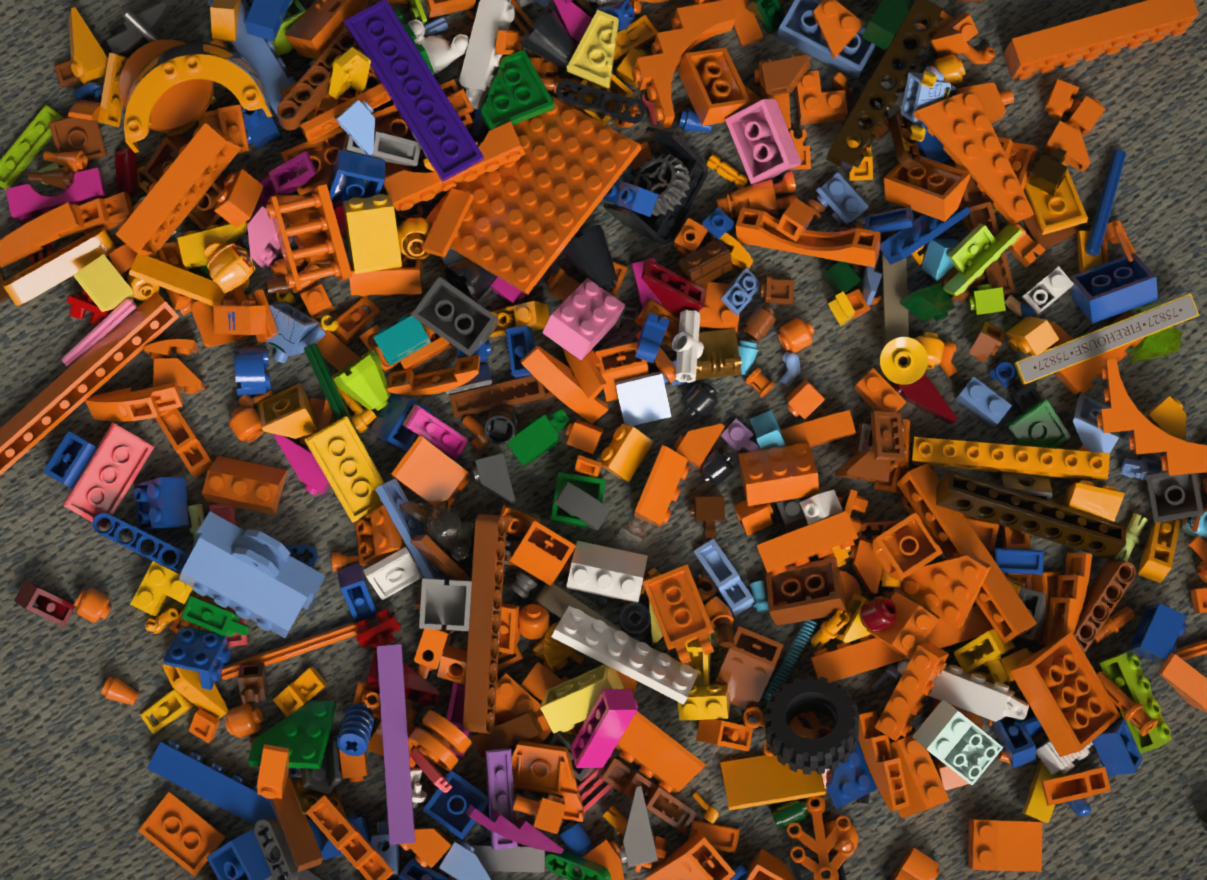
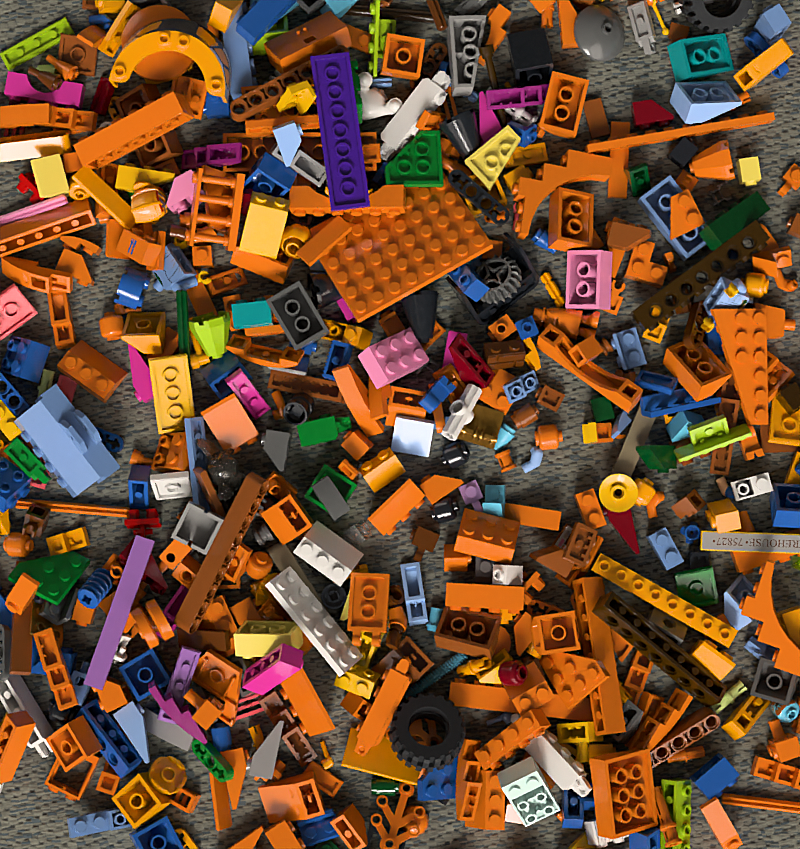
camera: 30 degrees right, 5 degrees up
(238, 198) = (176, 155): orange brick -> none
(430, 770) = (136, 642): coral tile -> none
(573, 666) = (273, 611): none -> orange hinge
(749, 719) = (382, 710): none -> orange hinge
(804, 399) = (532, 488): orange brick -> none
(987, 299) = (703, 473): lime brick -> none
(1019, 560) = (636, 678): blue tile -> none

